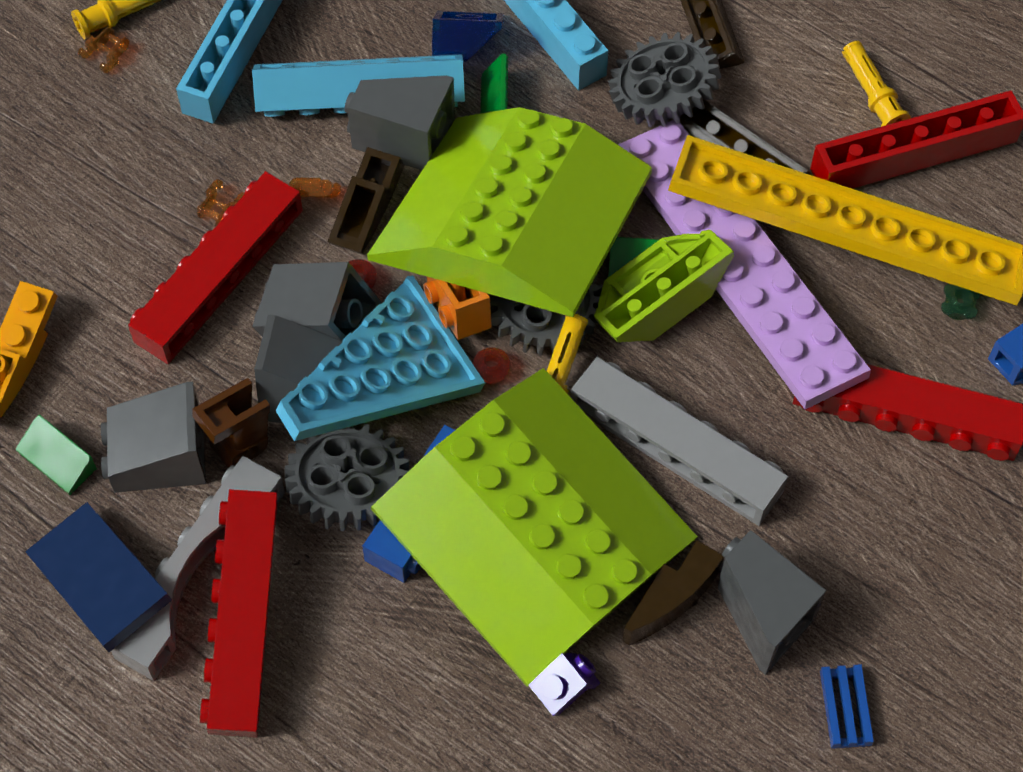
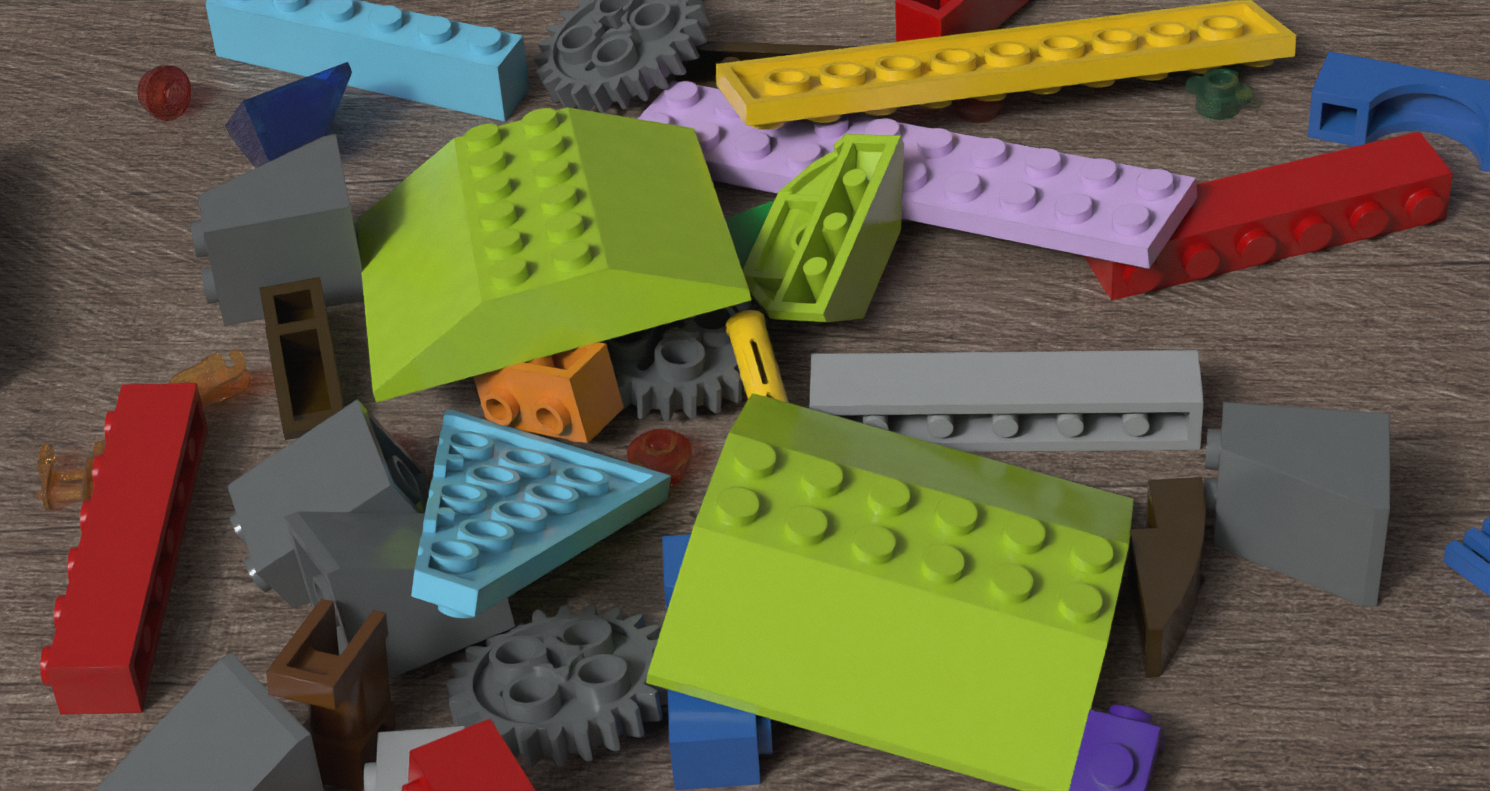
camera: 30 degrees left, 20 degrees down
(328, 83) = (125, 257): medium azure brick -> none
(495, 86) = (385, 153): green slope -> none

